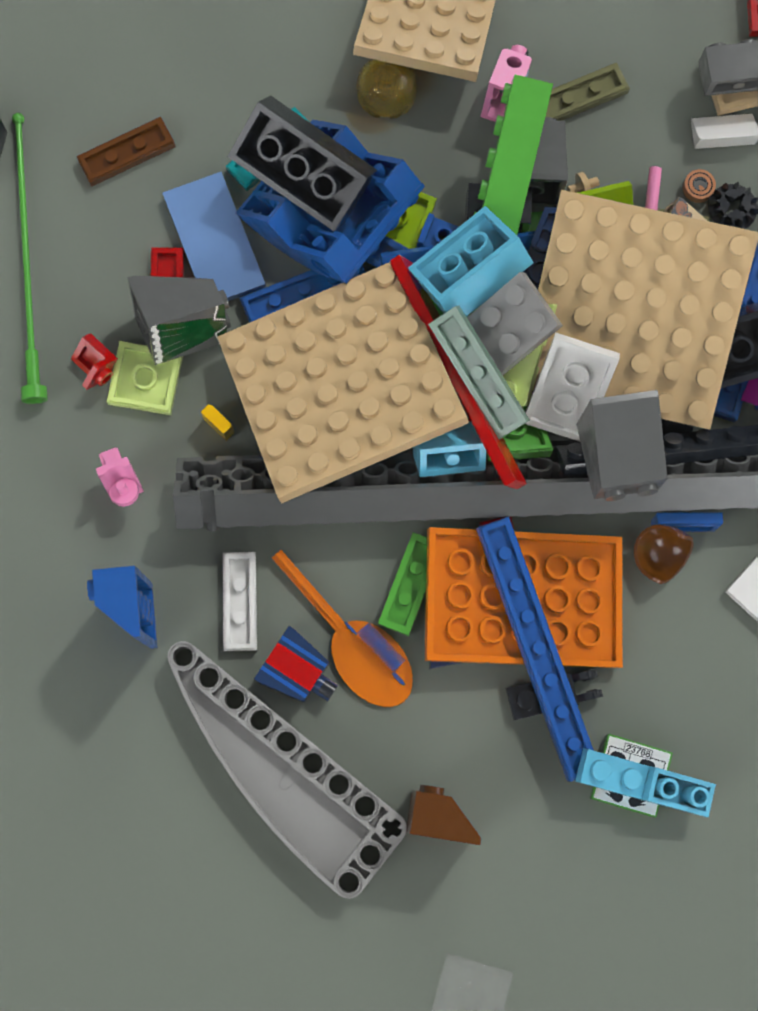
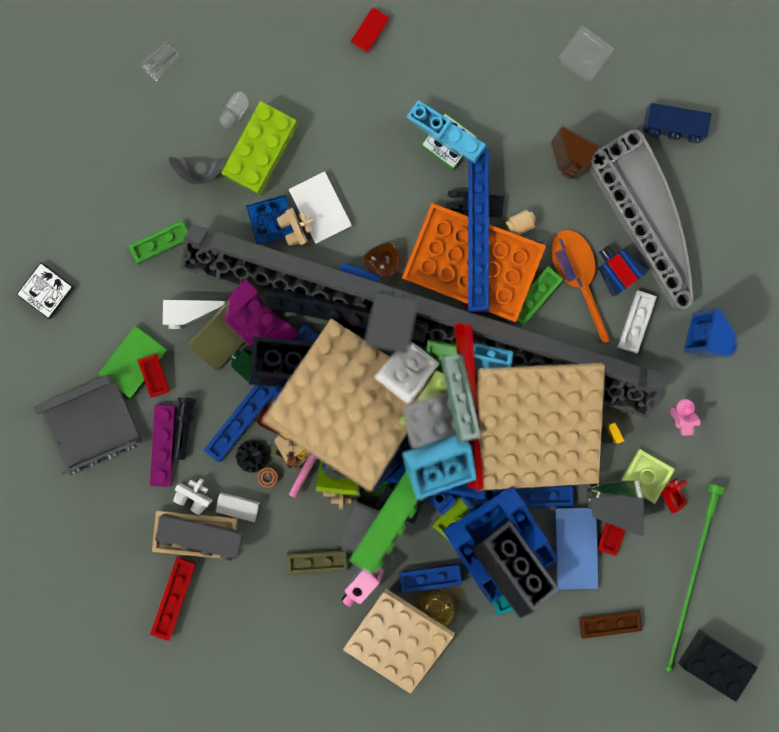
camera: 150 degrees left, 10 degrees up
(287, 936) = (676, 123): none -> dark blue brick
(412, 124) = (430, 578): none -> blue plate
(474, 686) = (521, 222): none -> tan brick

